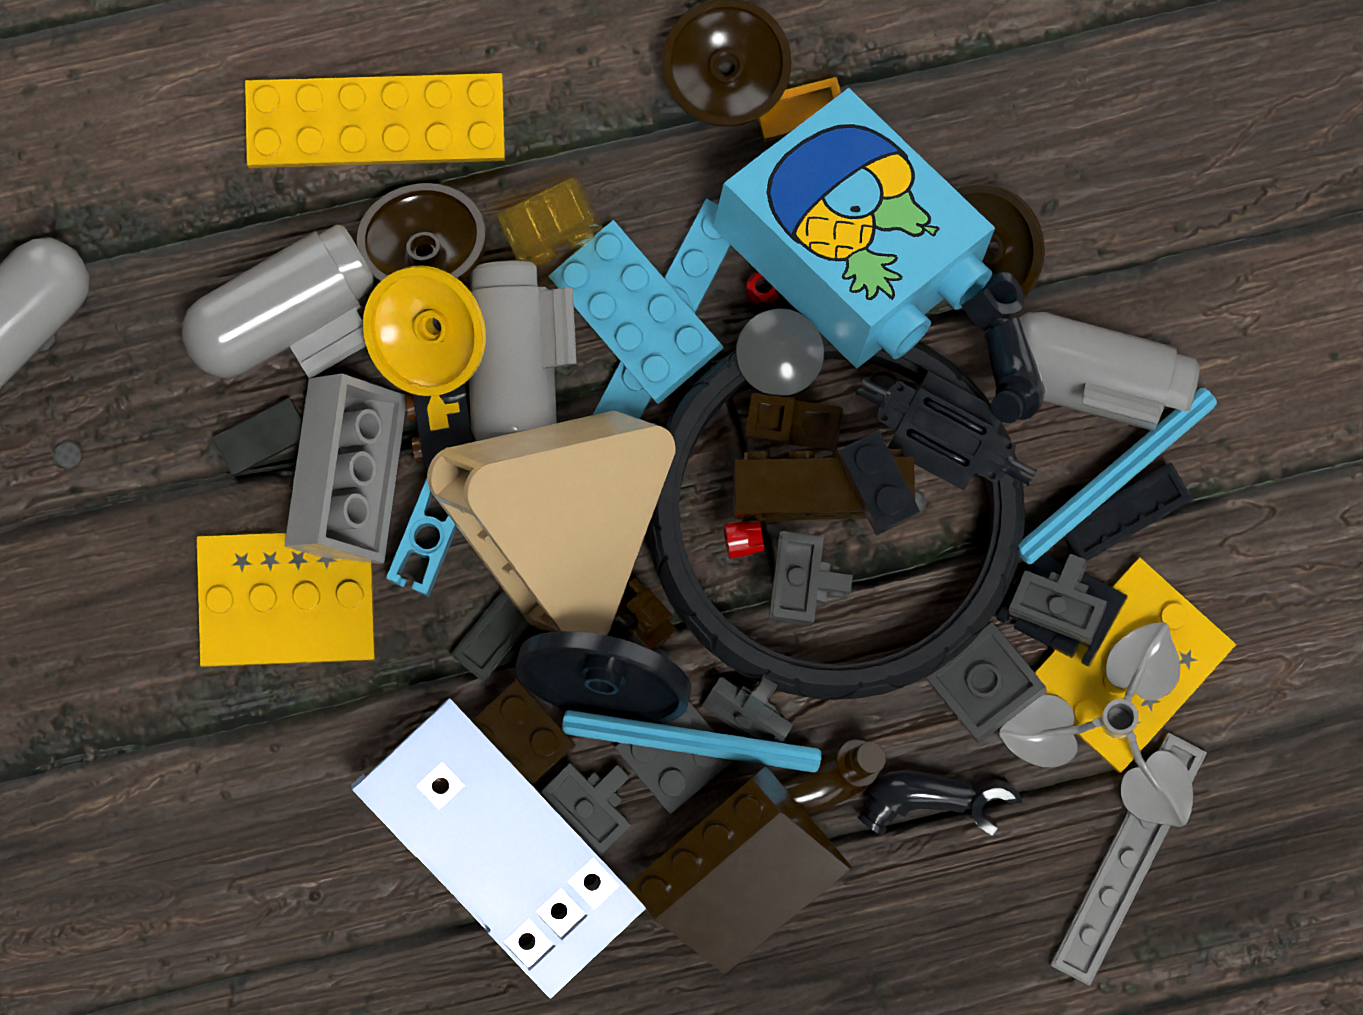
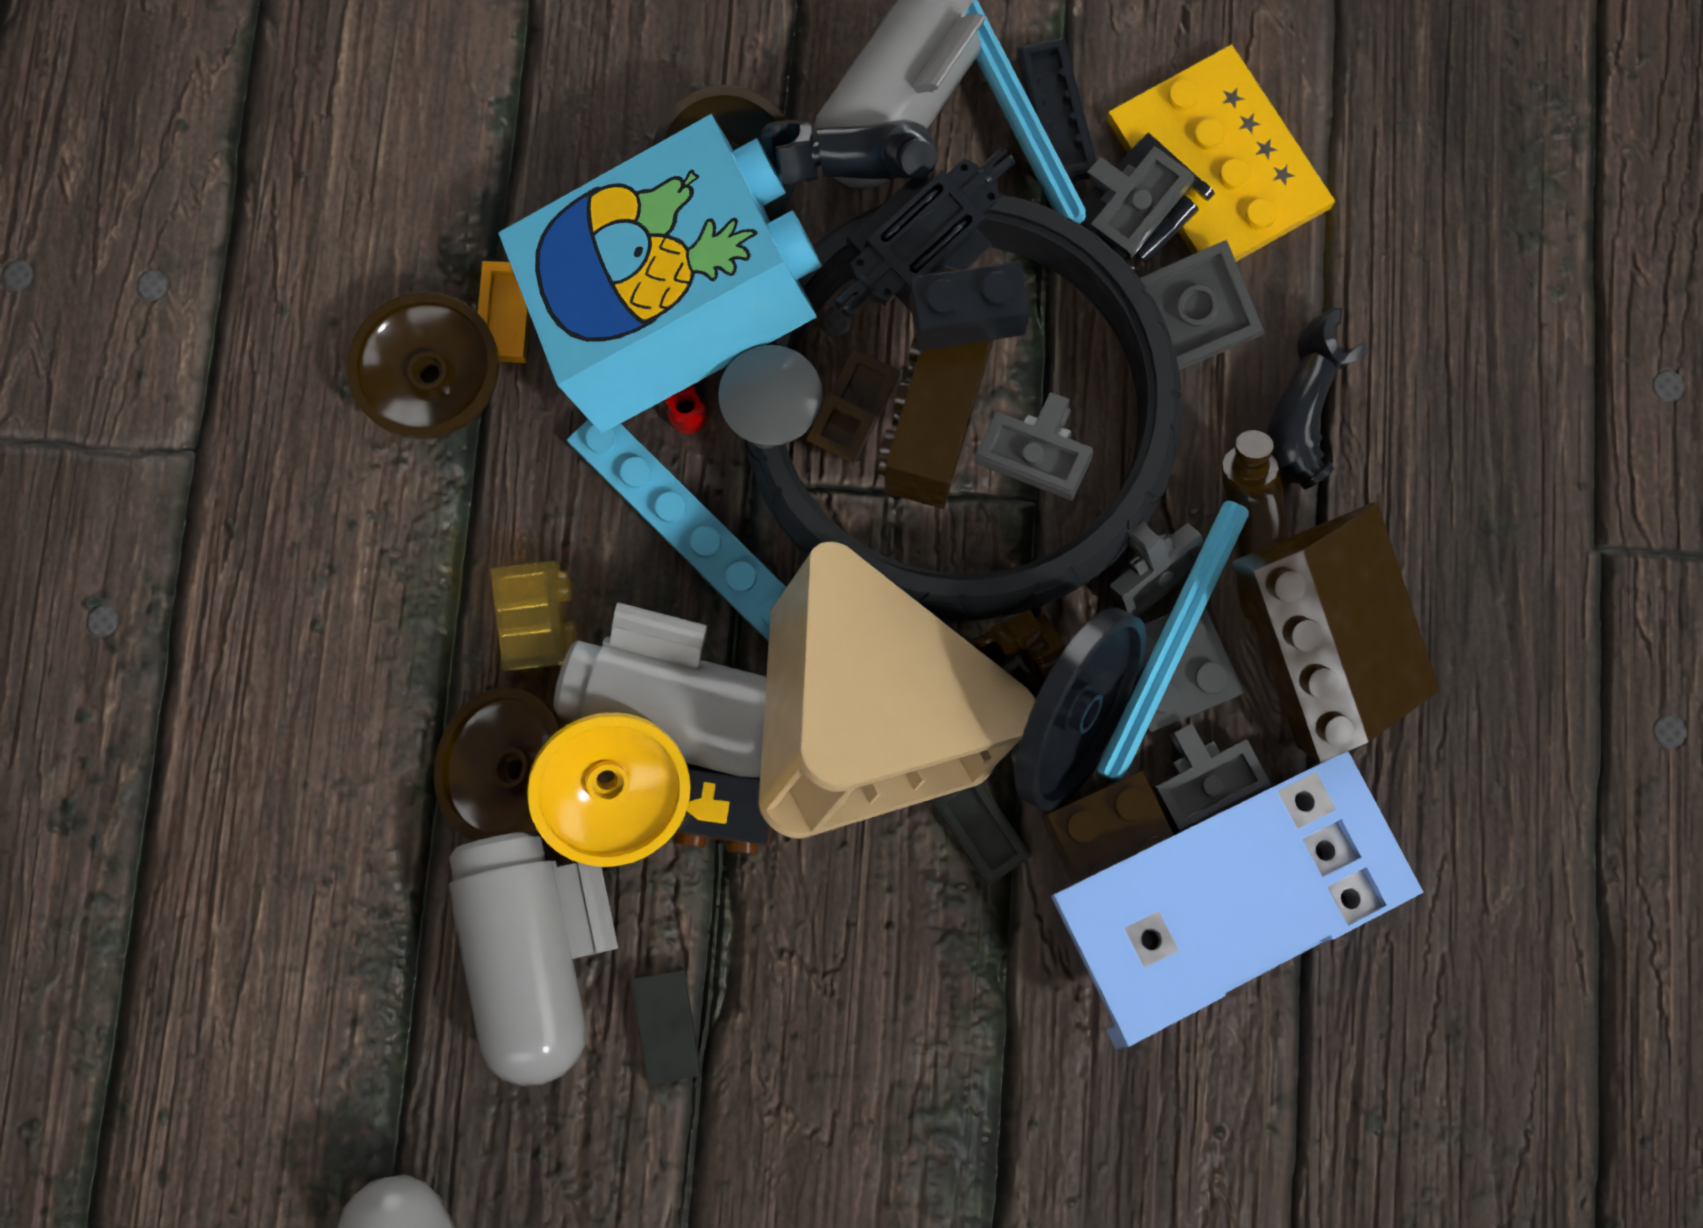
camera: 65 degrees left, 5 degrees down
(280, 604) = (863, 1059): yellow plate -> none
(346, 469) = (738, 939): light grey slope -> none
(374, 120) = (346, 782): yellow plate -> none
(409, 545) = (848, 891): medium azure piece -> none
(636, 312) = (668, 549): medium azure plate -> none
(743, 538) = (969, 502): red hose -> none
(1116, 882) = (1429, 225): light grey tile -> none
(1144, 665) = (1362, 162): light grey plant -> none

